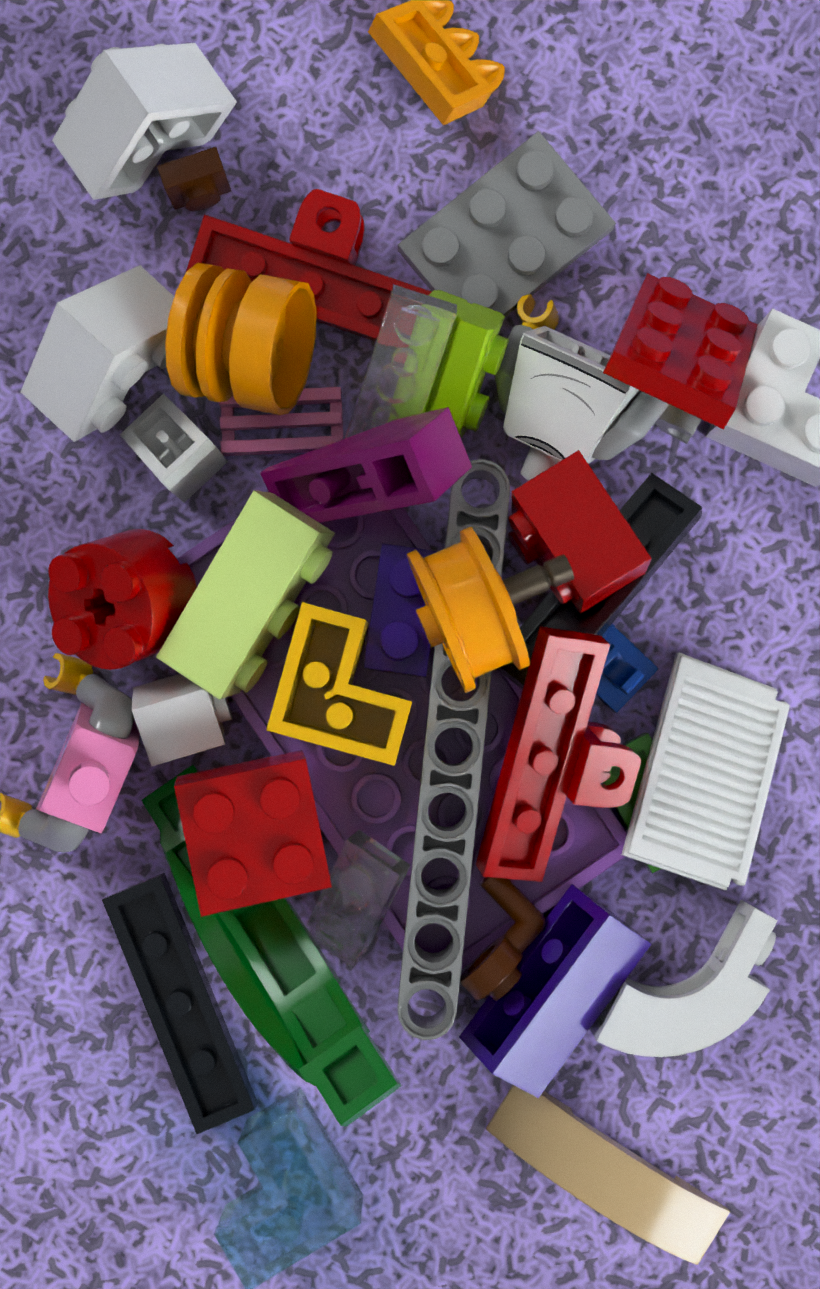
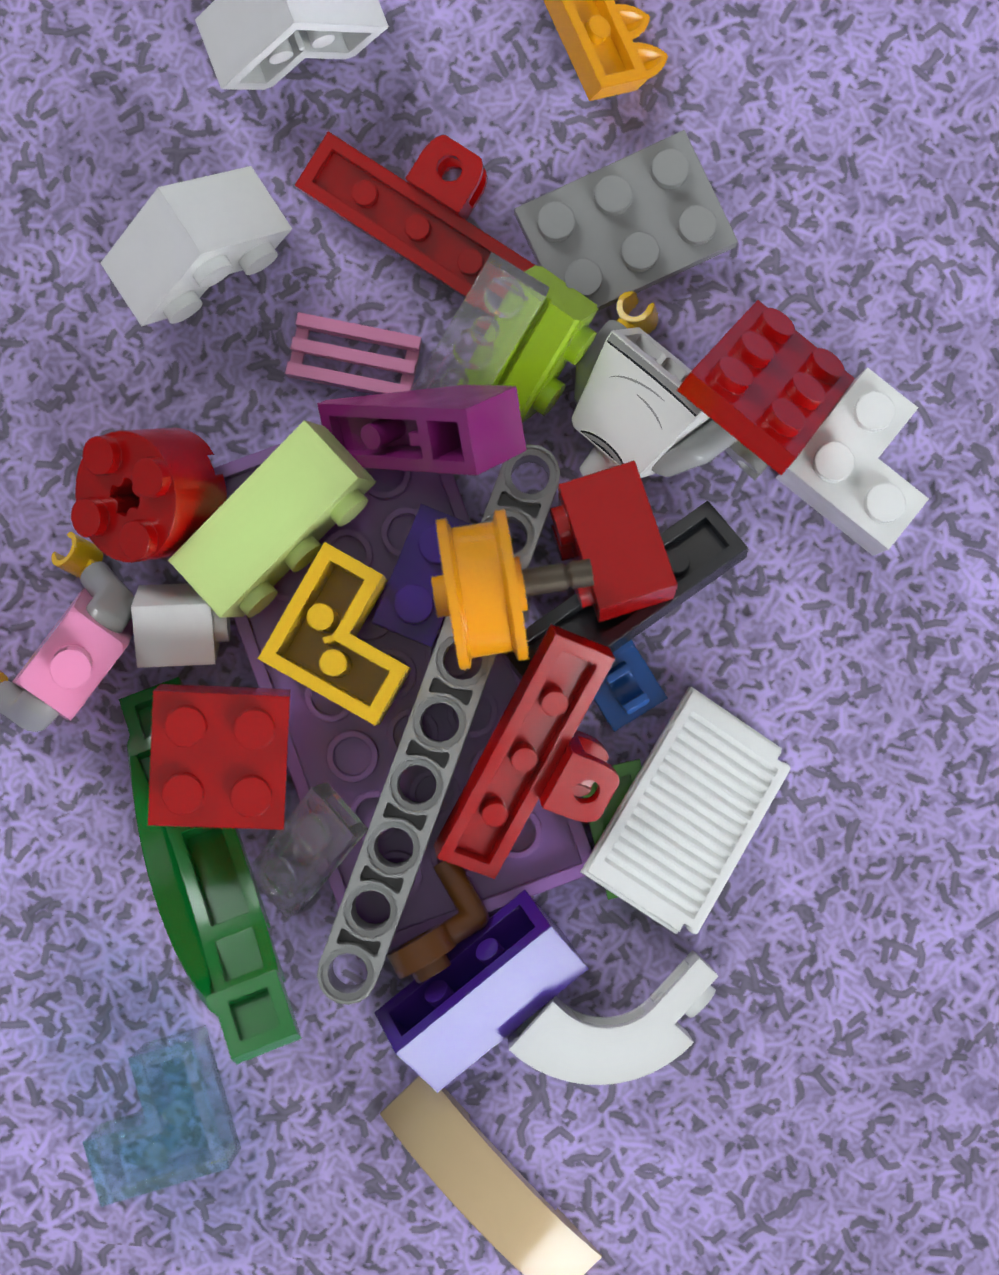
camera: 10 degrees right, 0 degrees up
(173, 448) = (238, 357): white slope -> none
(180, 1003) = (107, 910): black plate -> none
(195, 180) = (327, 95): reddish brown plate -> none
(241, 338) = (332, 265): light orange wheel -> none

